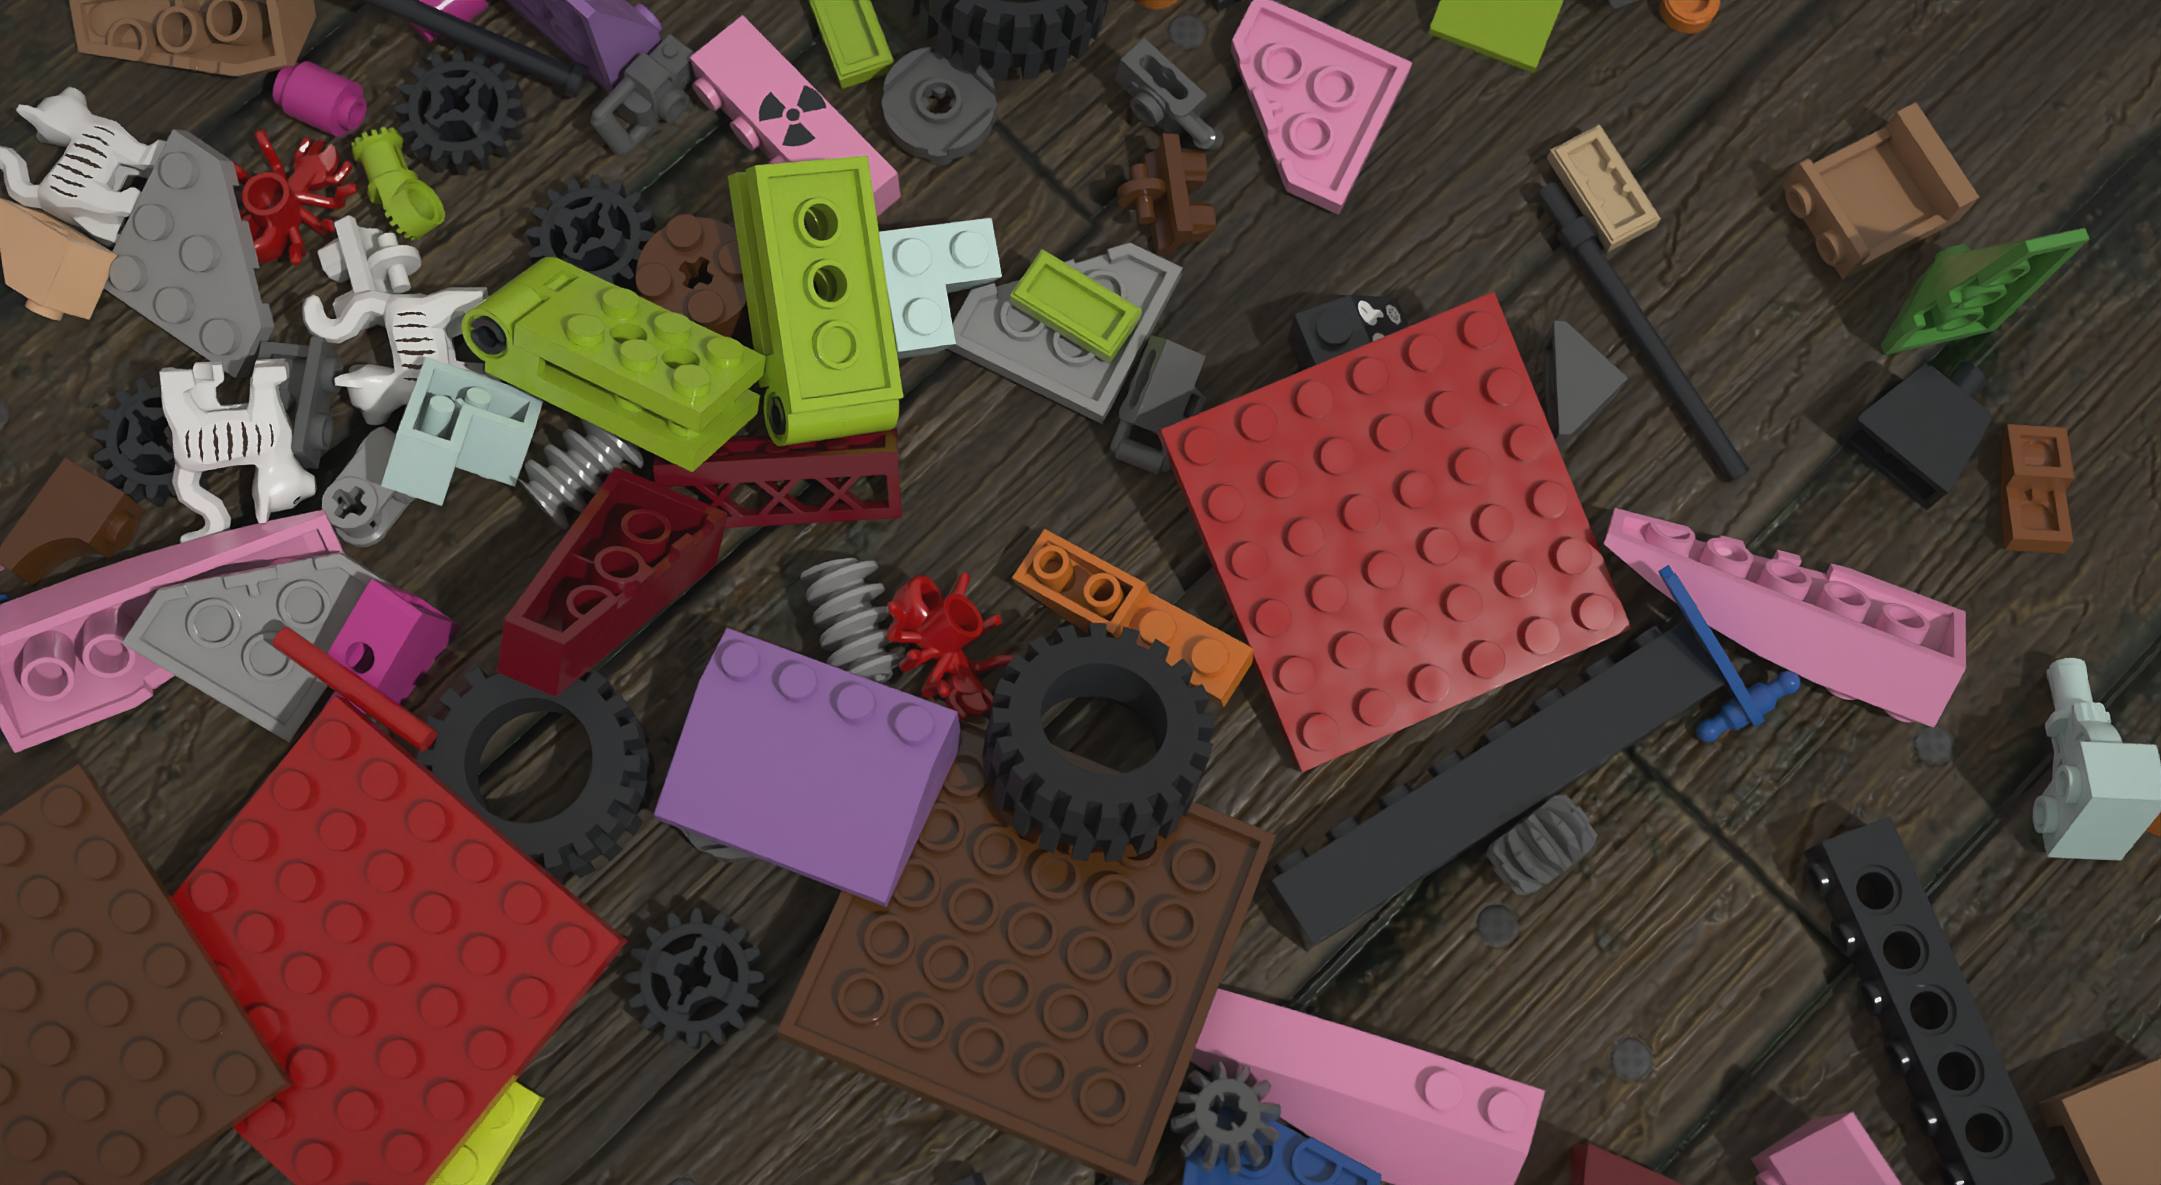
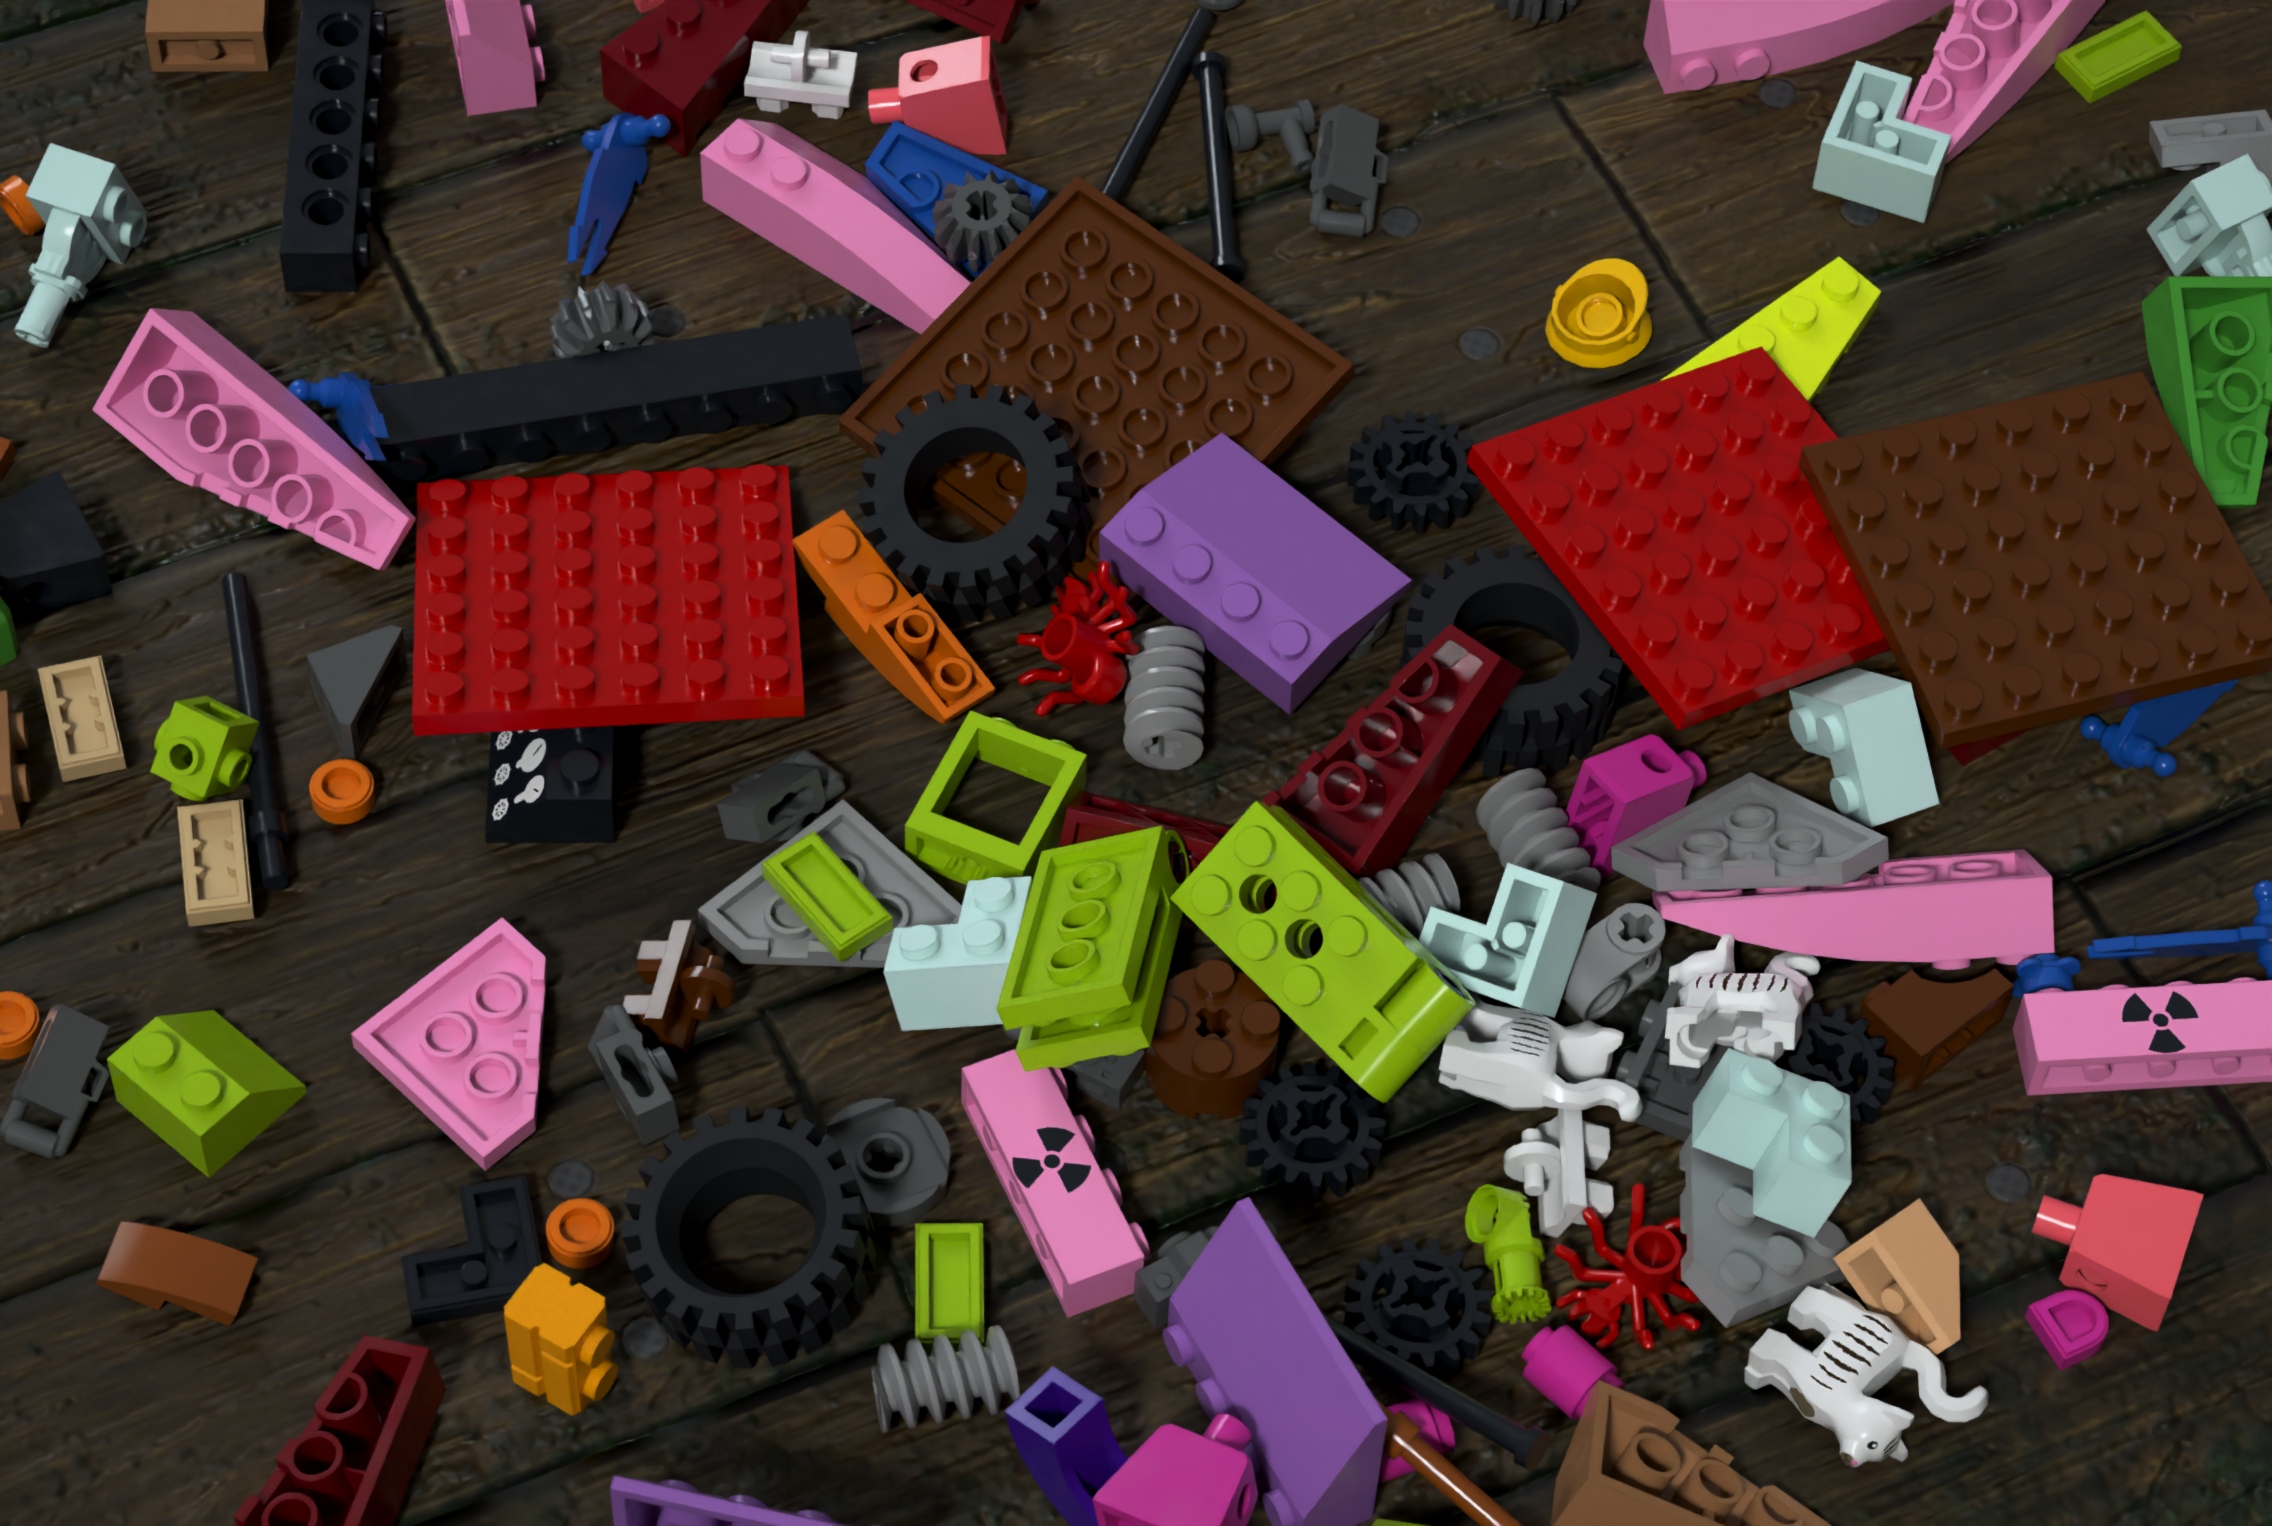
camera: 160 degrees left, 20 degrees down
(160, 320) = (1783, 1130): none -> light aqua brick
(169, 783) = (1873, 743): none -> light aqua brick
(354, 689) = (1667, 732): red bar -> none
(461, 580) = (1532, 832): none -> light grey piece
(975, 404) = (974, 855): none -> lime window
(1536, 300) = (342, 791): none -> orange tile
(1626, 1057) = (614, 169): none -> blue piece
(1667, 269) = (204, 748): none -> lime brick
(1788, 284) = (82, 718): none -> tan plate

